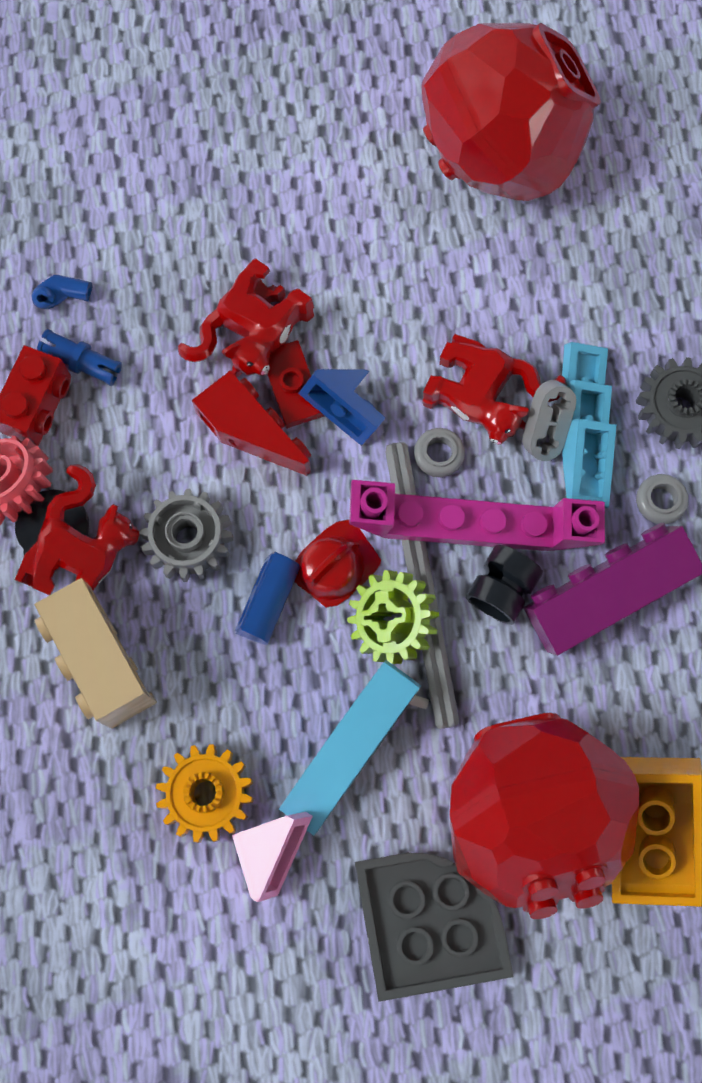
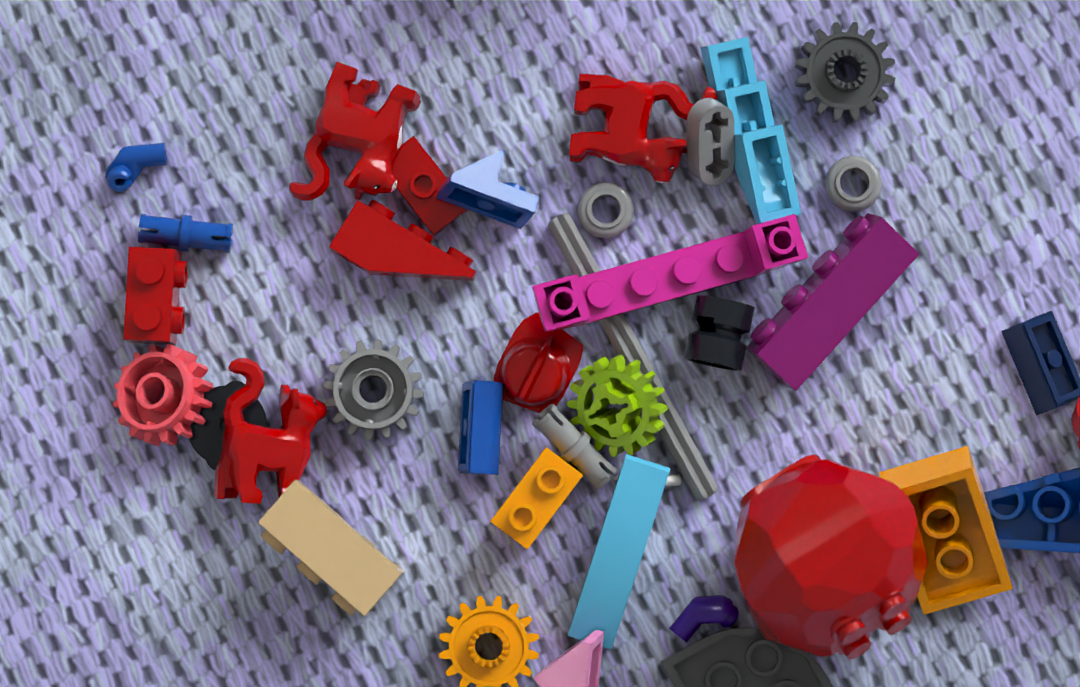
camera: 25 degrees left, 10 degrees up
(293, 674) = (536, 498): none -> light orange brick
(343, 640) = (574, 446): none -> light grey pin
(409, 829) = (704, 611): none -> dark purple arm

